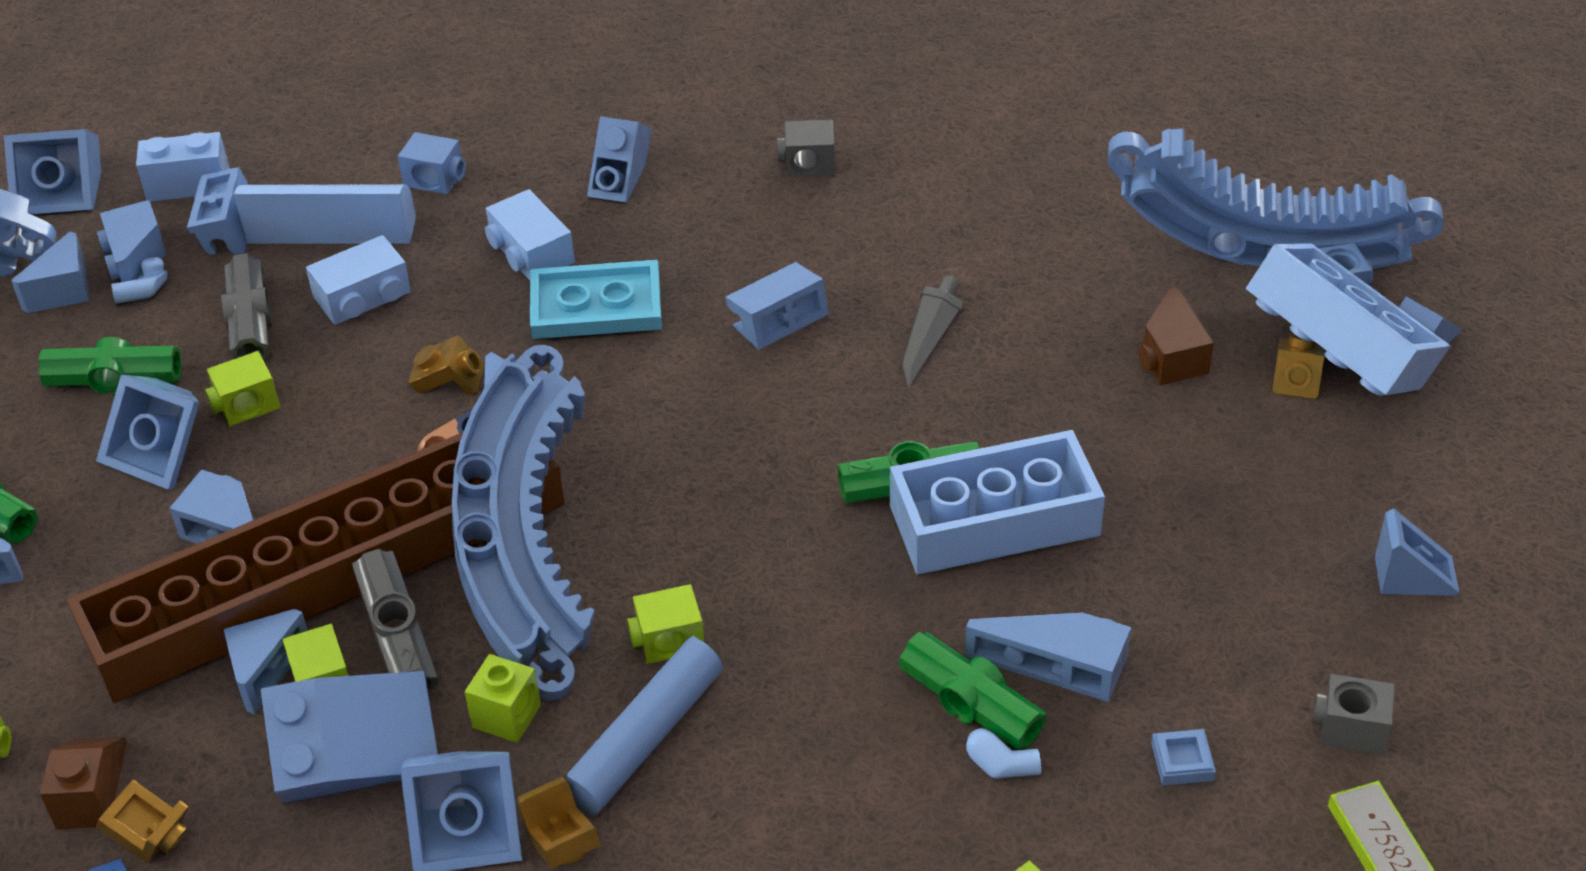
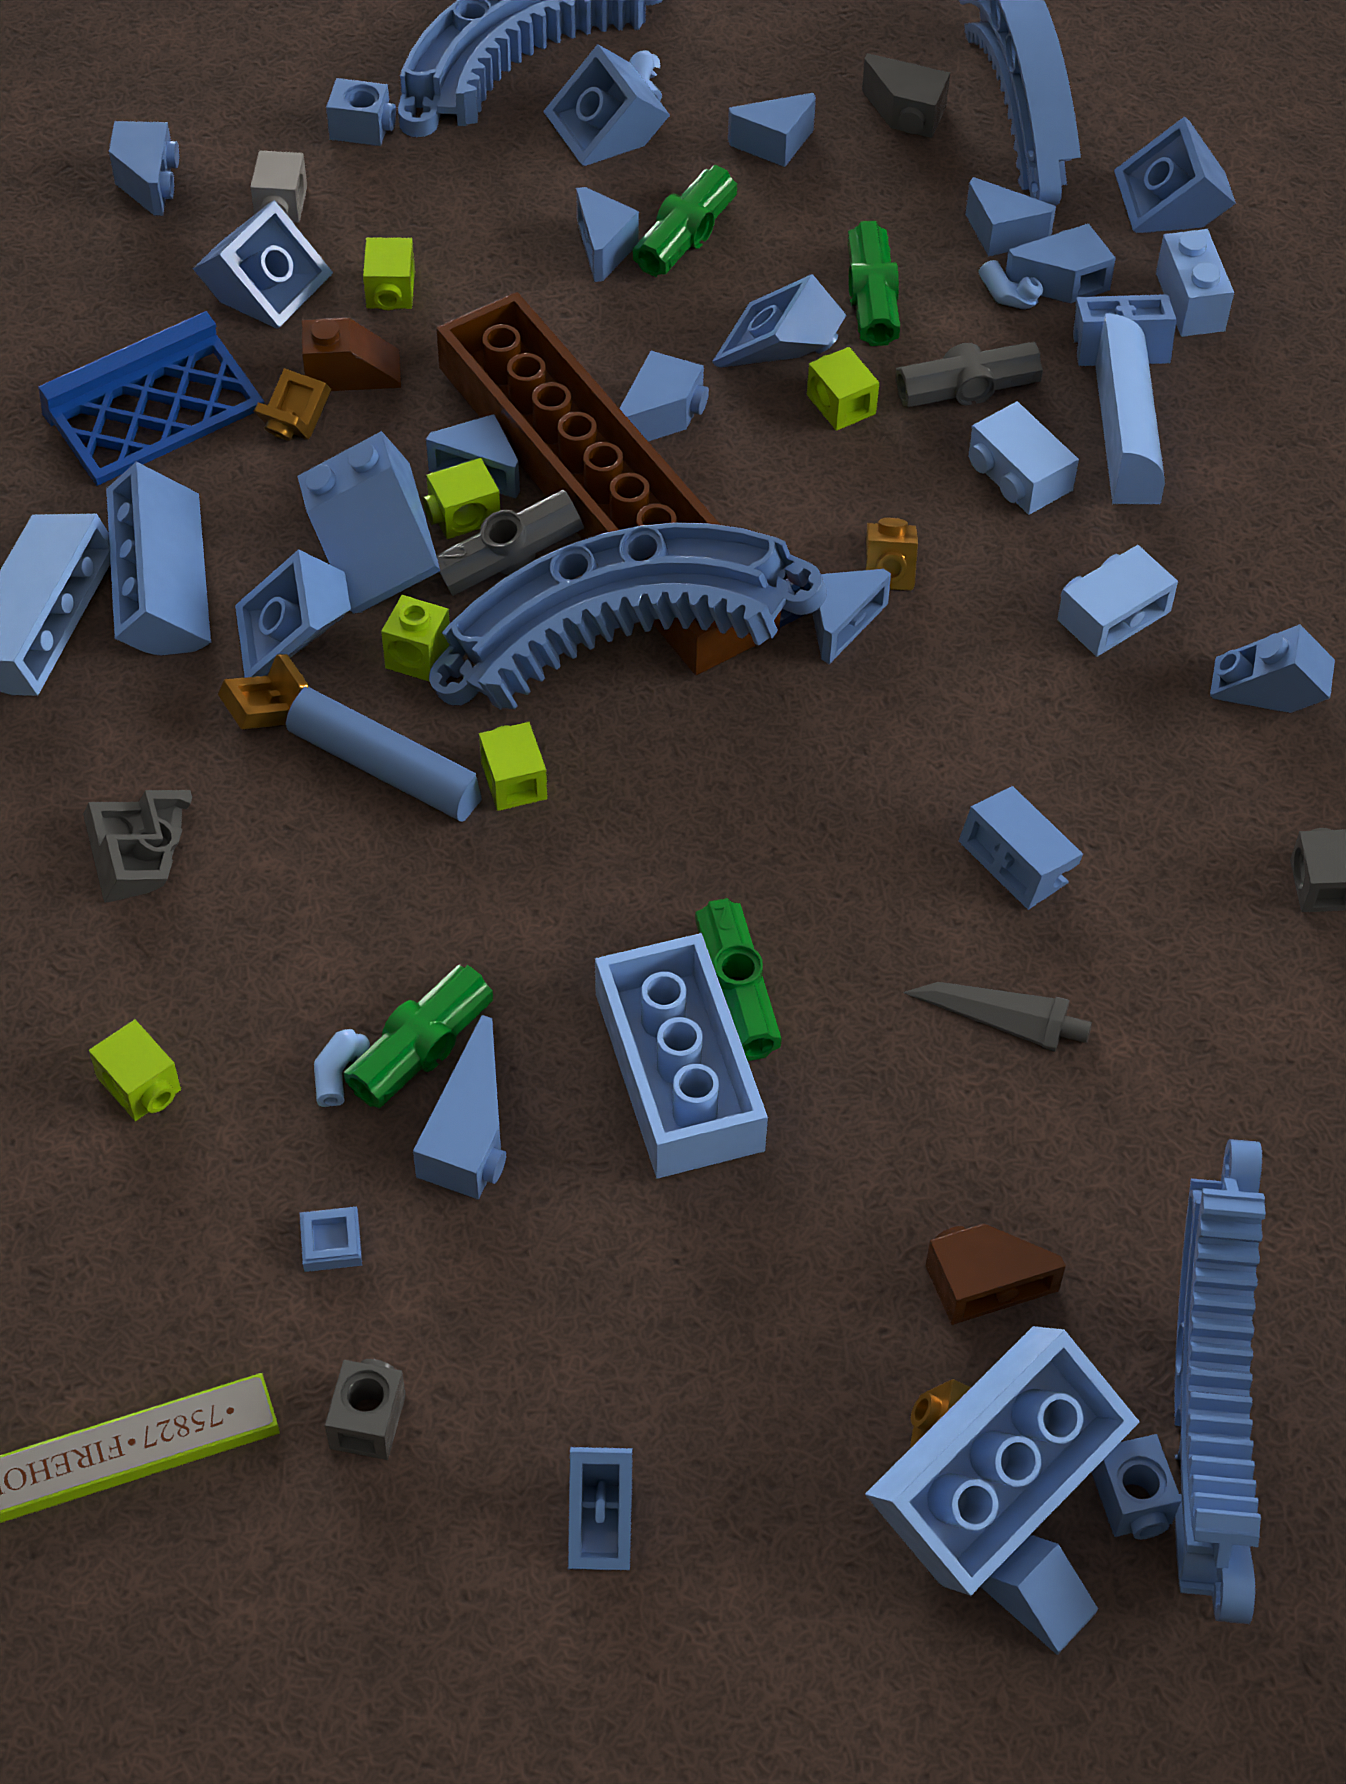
camera: 85 degrees right, 10 degrees up
(431, 163) = (1238, 496): medium blue brick -> none
(595, 299) = (1017, 674): medium azure plate -> none

